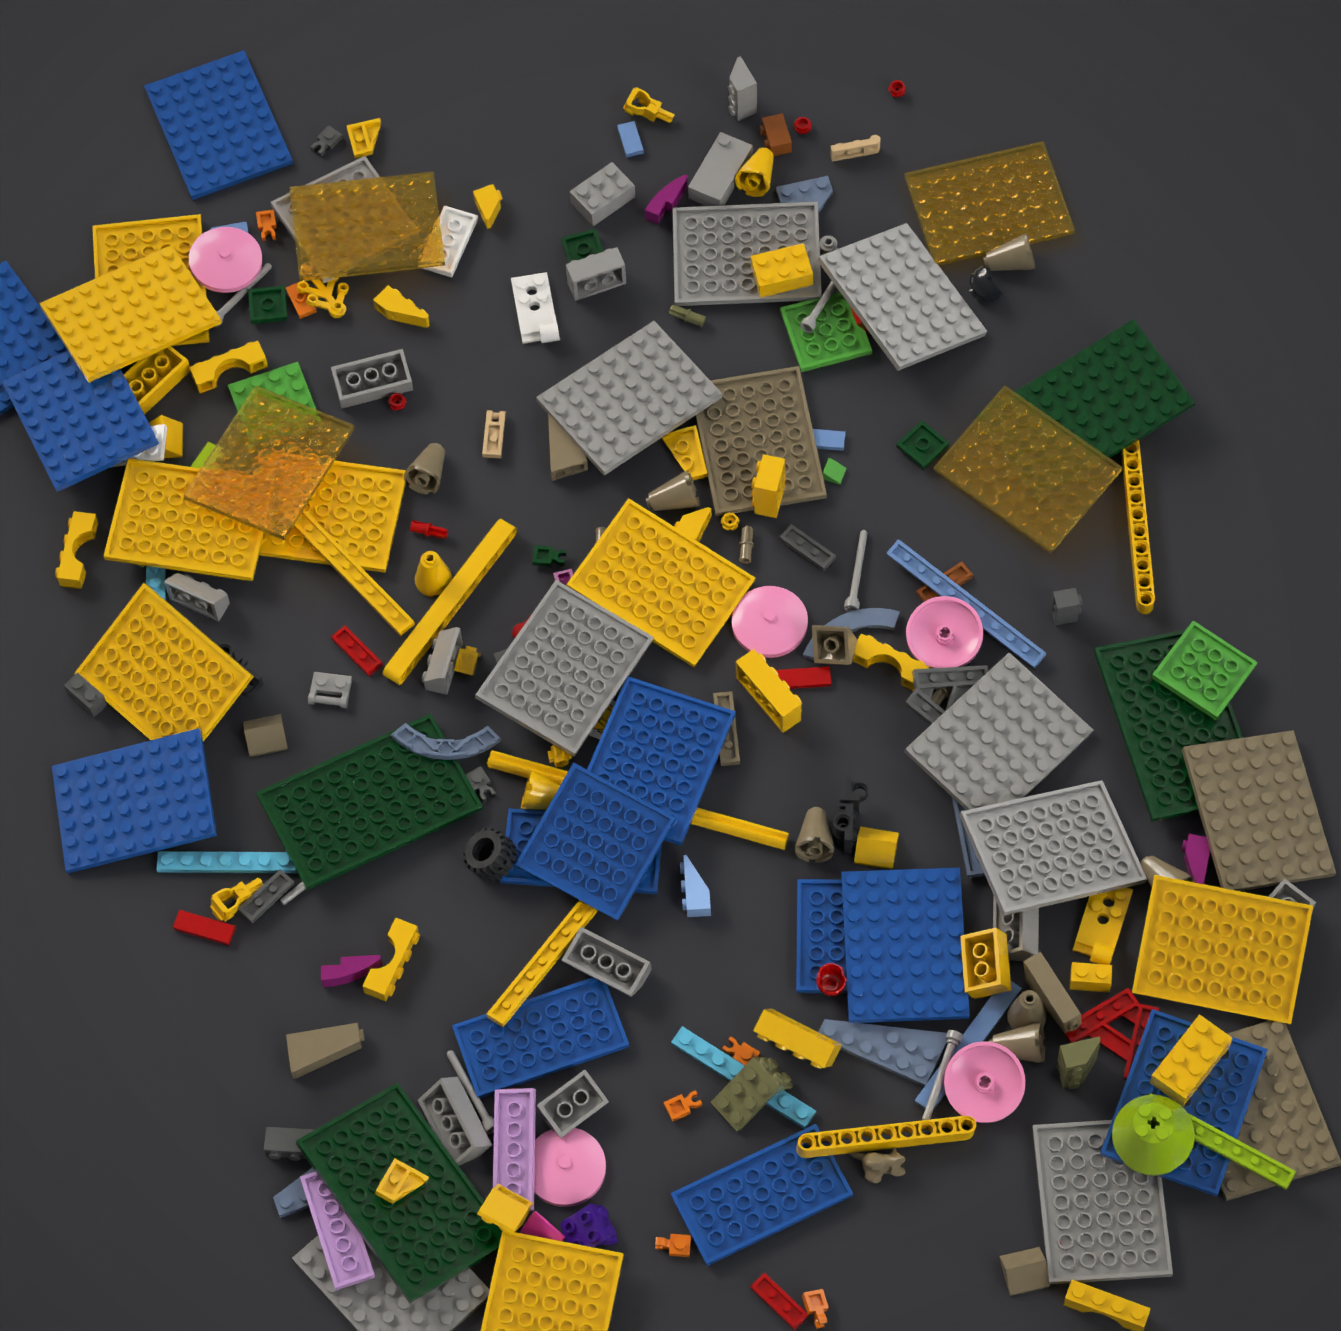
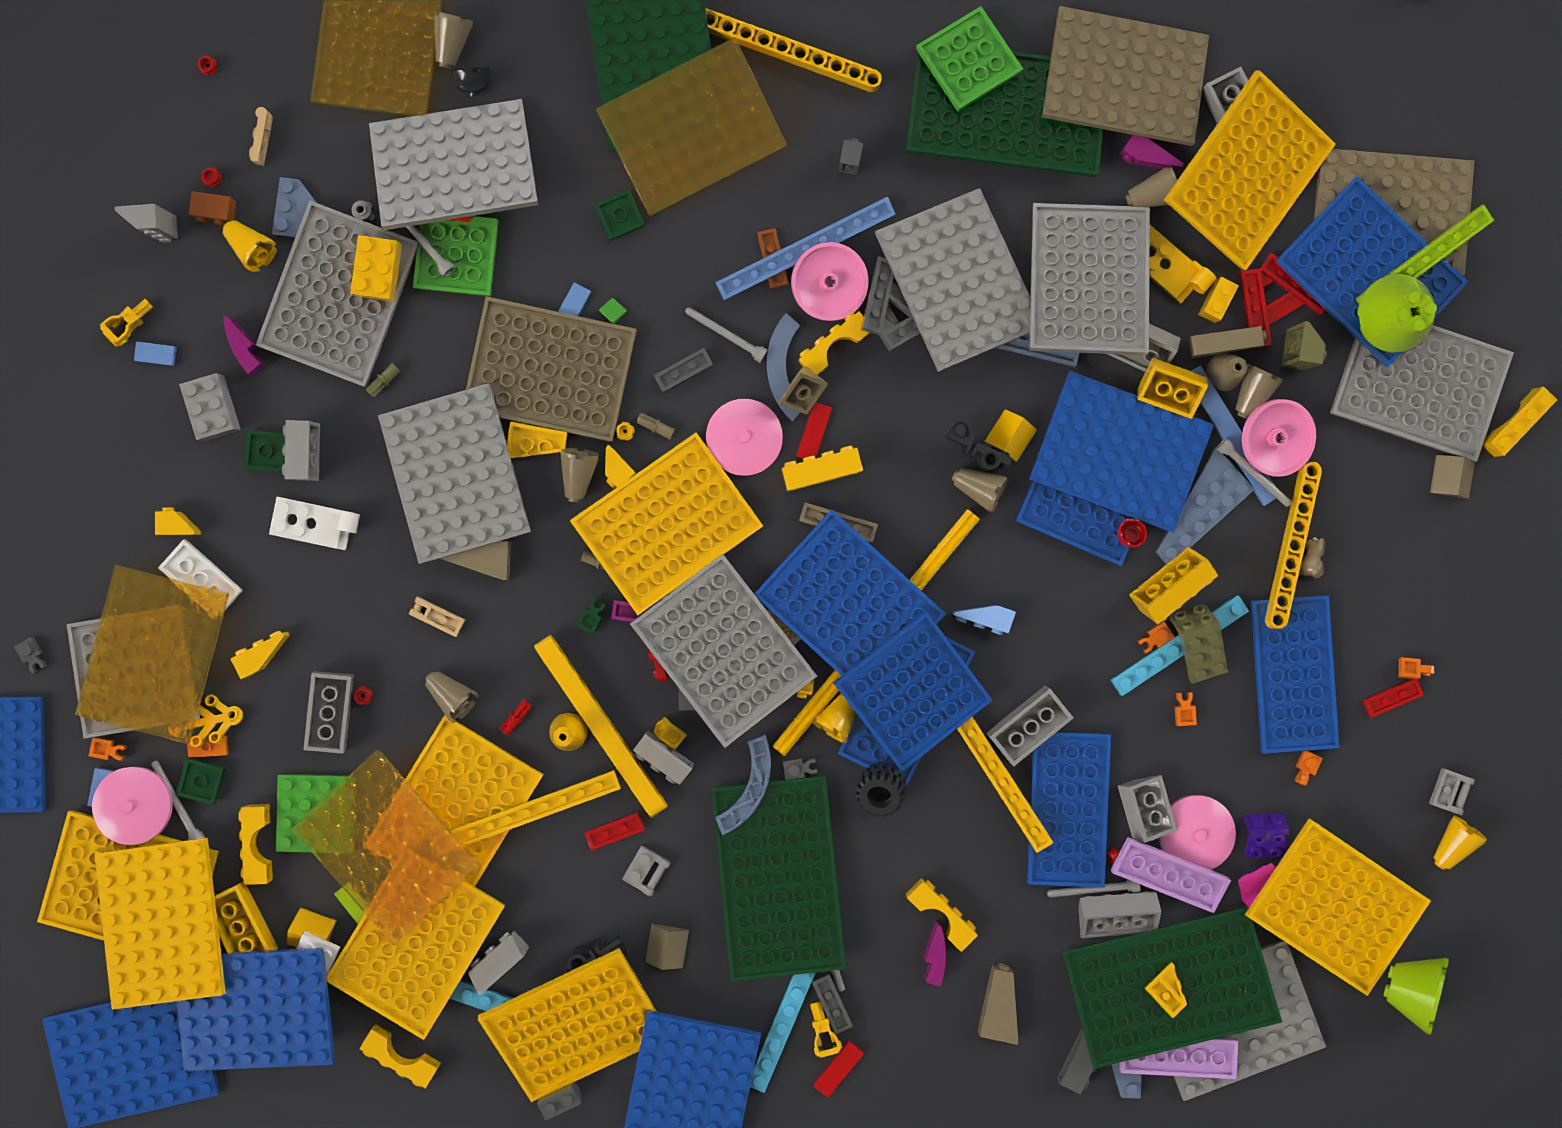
camera: 75 degrees left, 25 degrees up
(364, 137) = (42, 616): yellow wing -> none
(505, 1209) = (1230, 907): yellow slope -> none
(717, 173) = (232, 281): light grey brick -> none
(768, 486) = (615, 380): yellow brick -> none
(1191, 1060) = (1346, 248): yellow brick -> none

